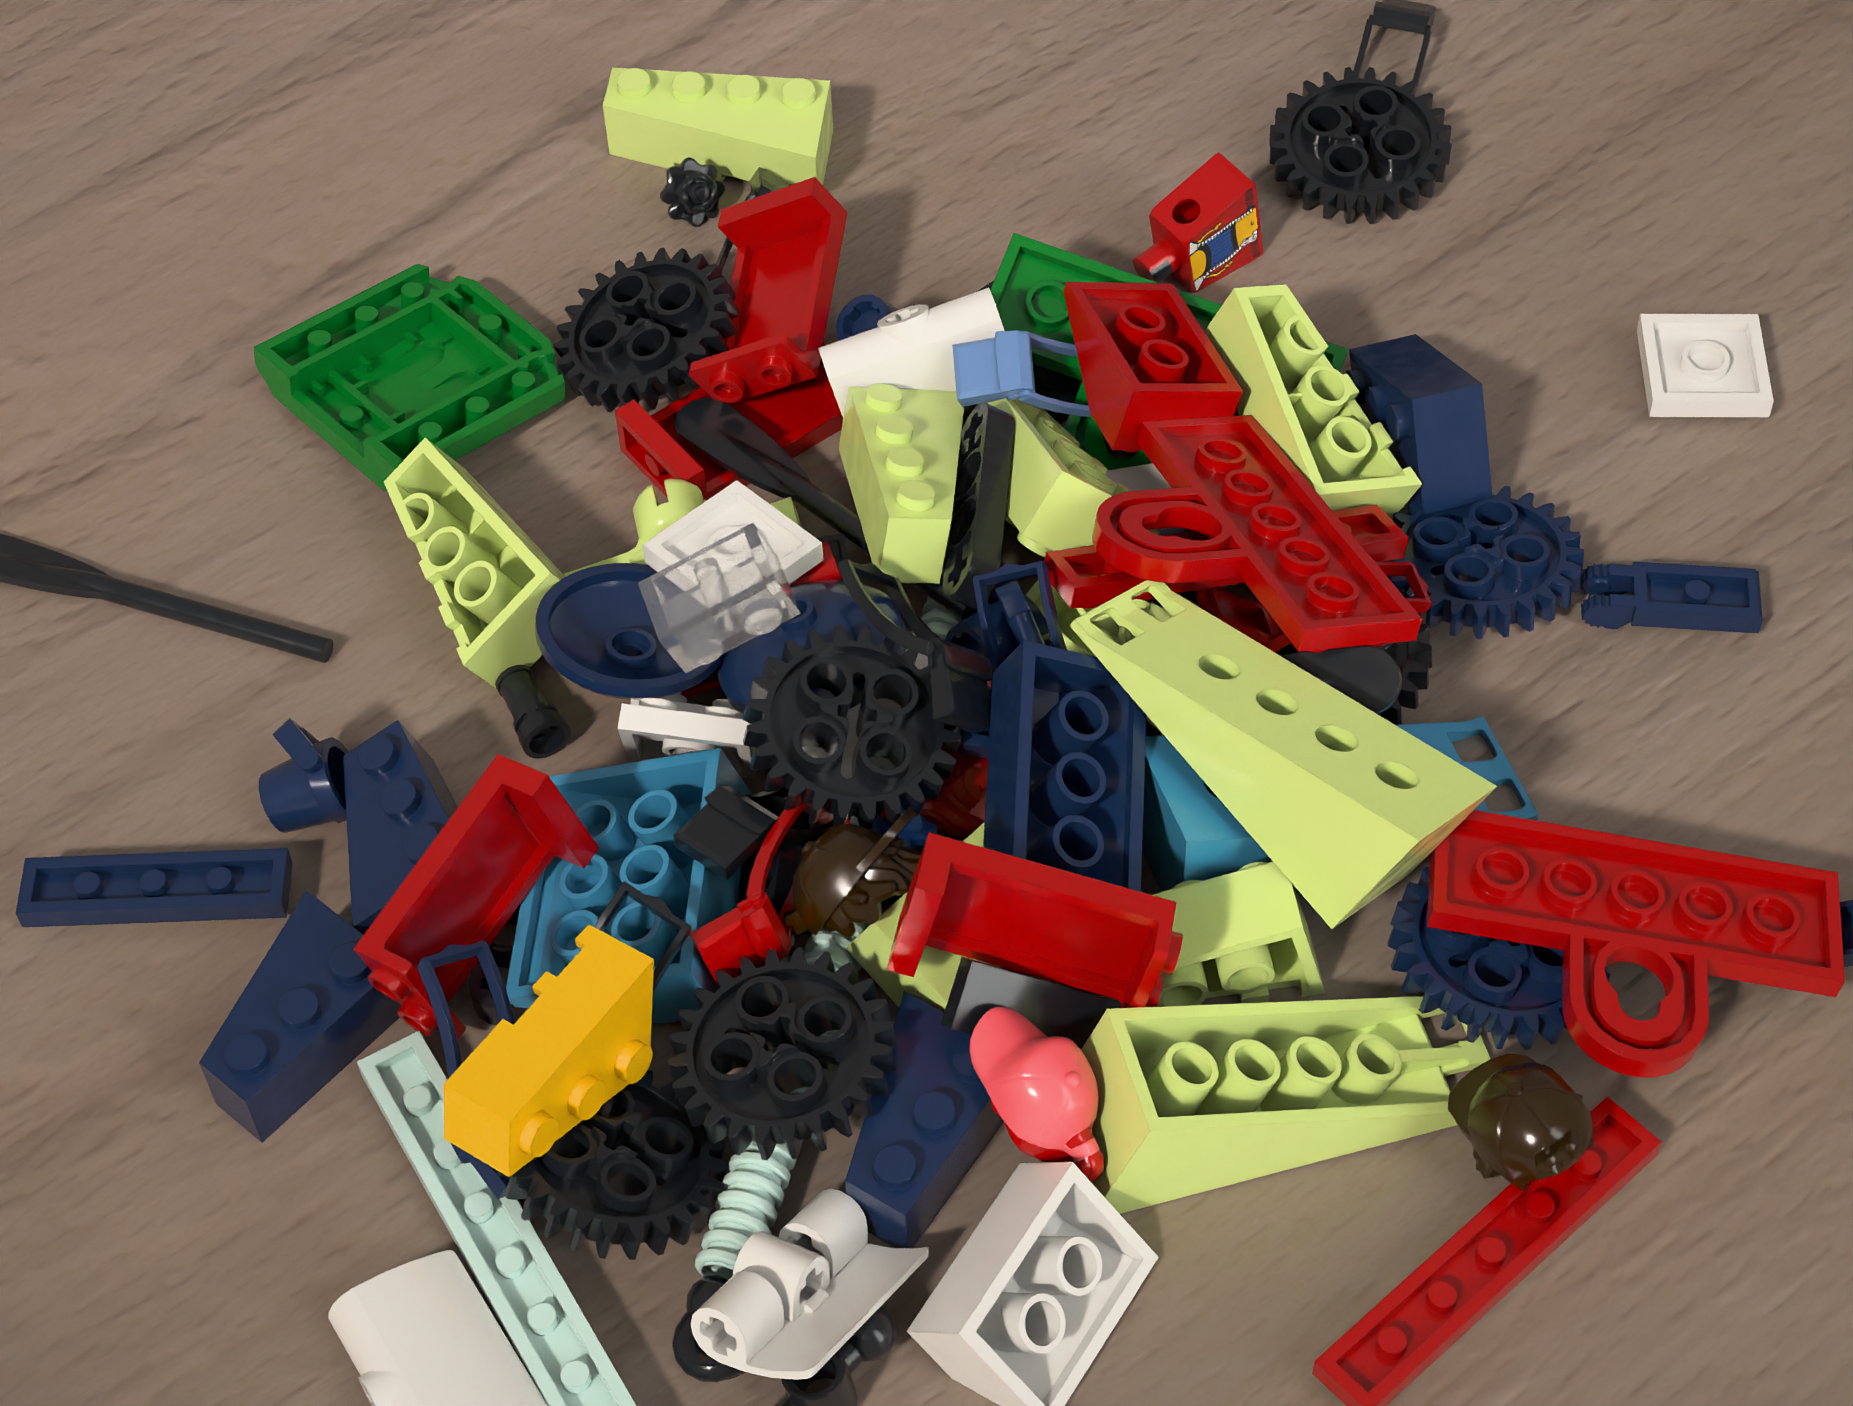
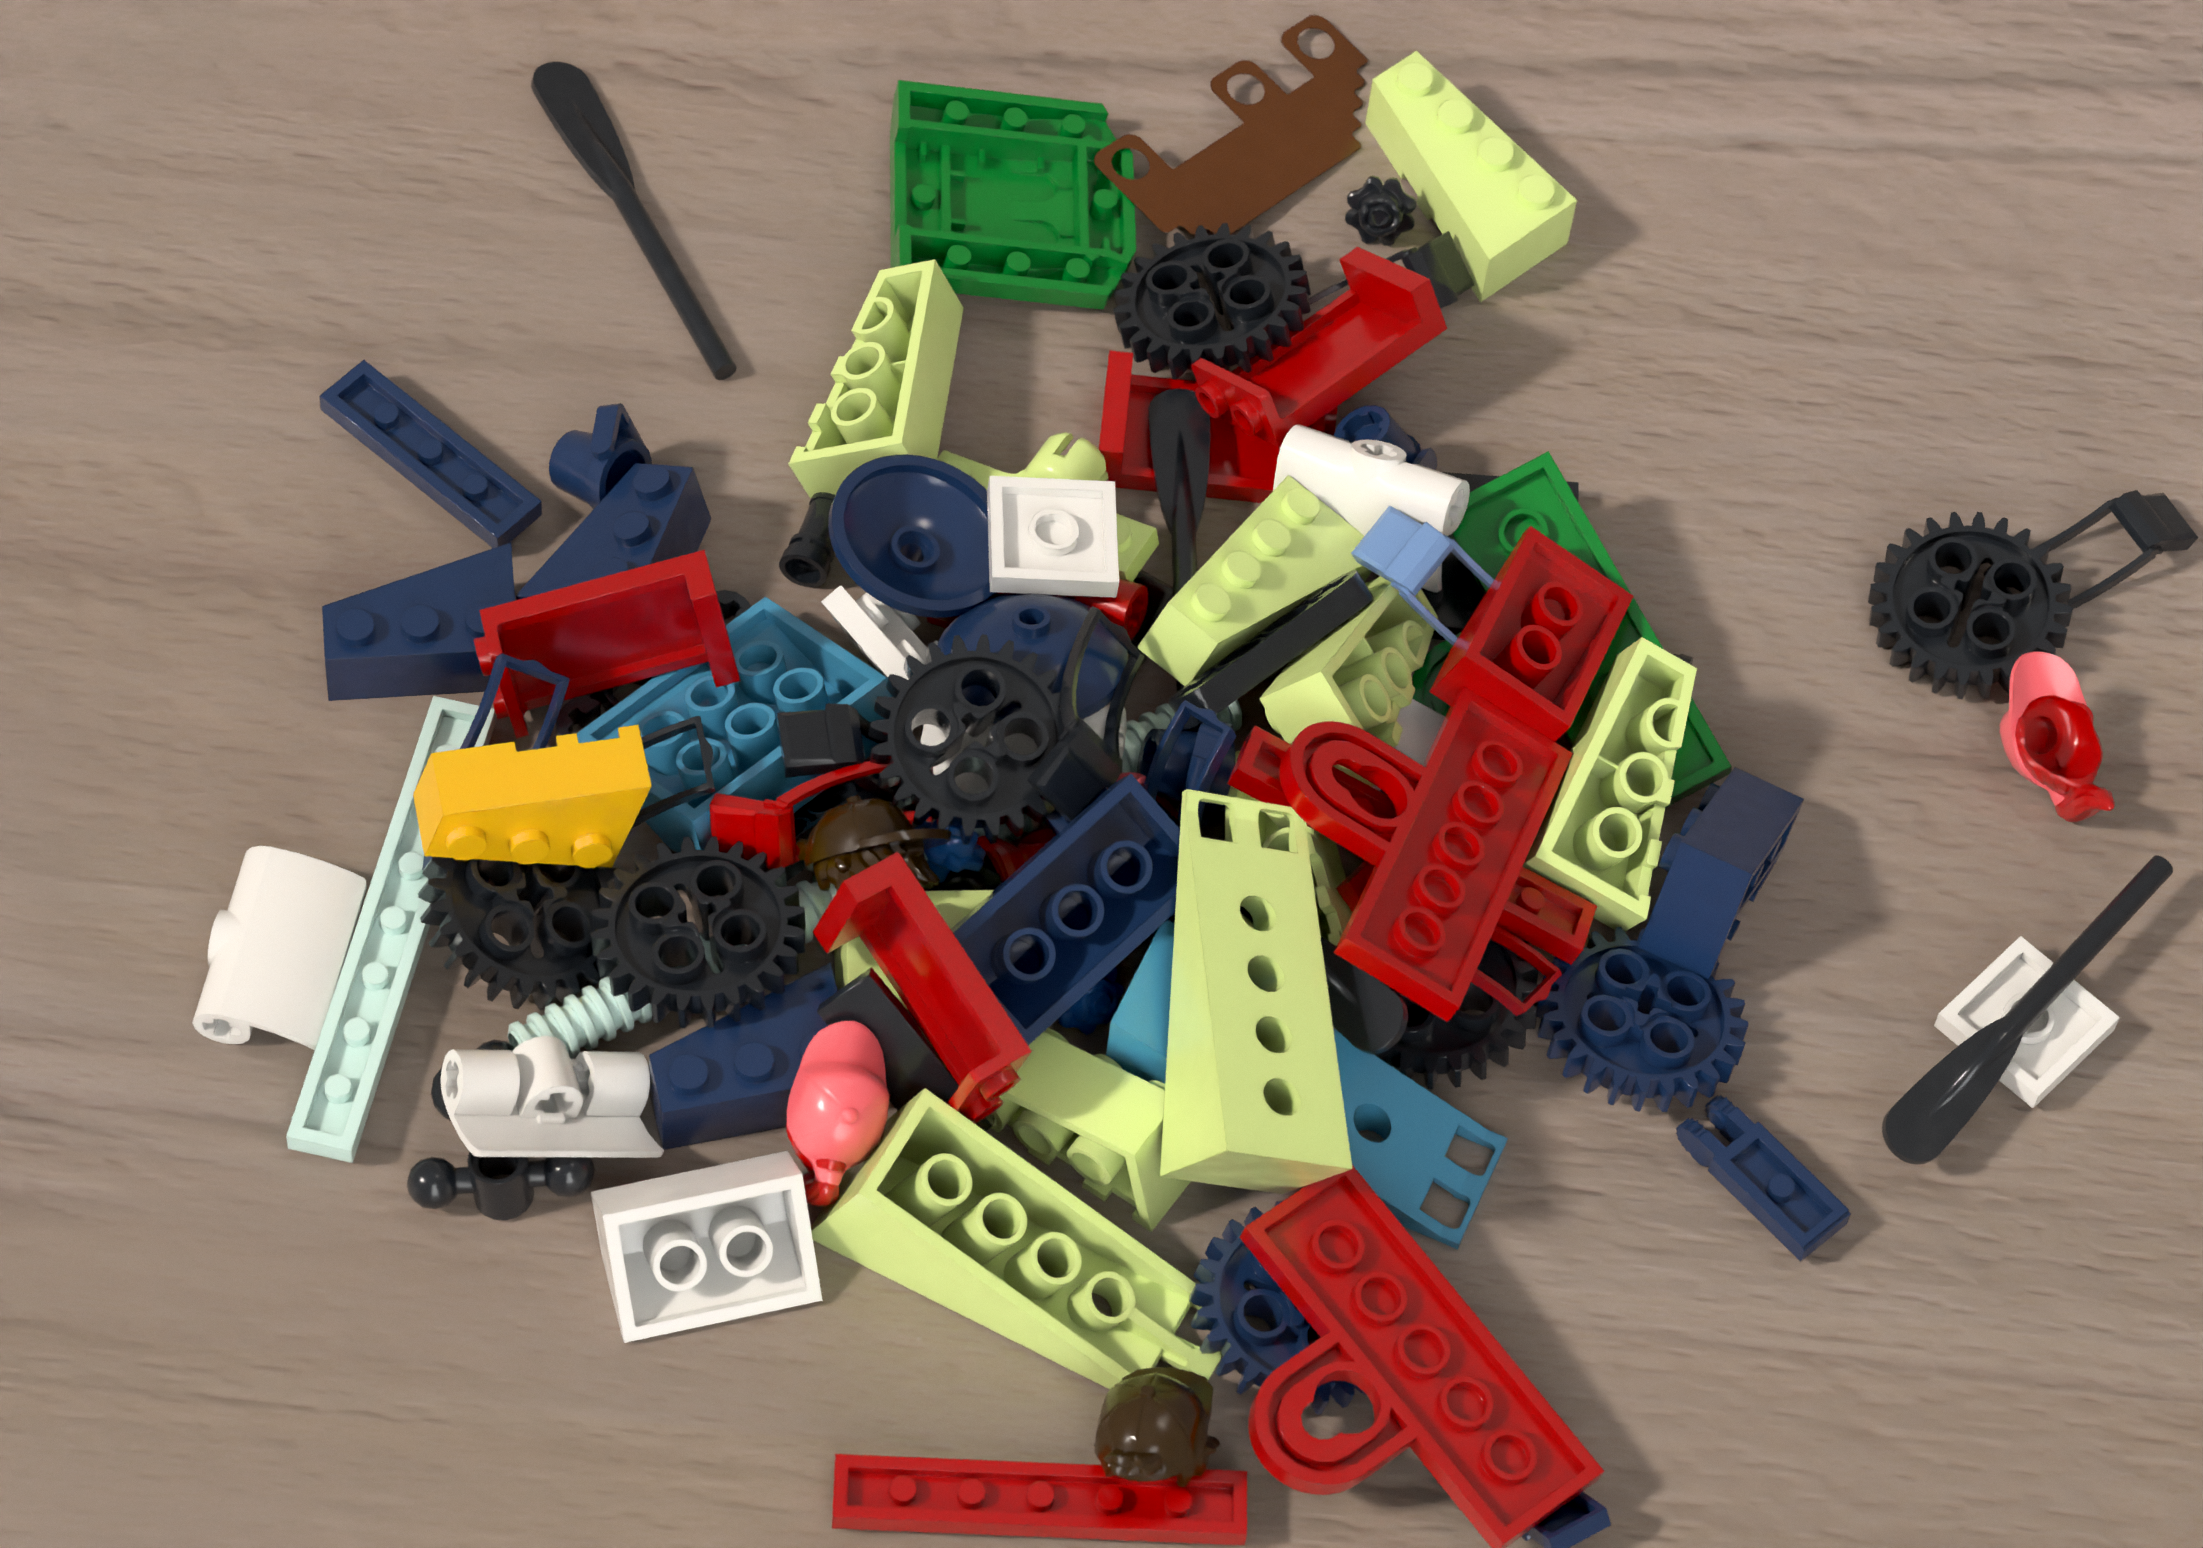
camera: 35 degrees right, 5 degrees up
(568, 220) = (1267, 157): none -> reddish brown piece
(718, 598) = (981, 562): clear brick -> none
(1204, 228) = (1737, 572): red torso -> none
(1516, 185) = (2053, 735): none -> red hair
(1725, 434) = (1955, 1088): none -> black piece

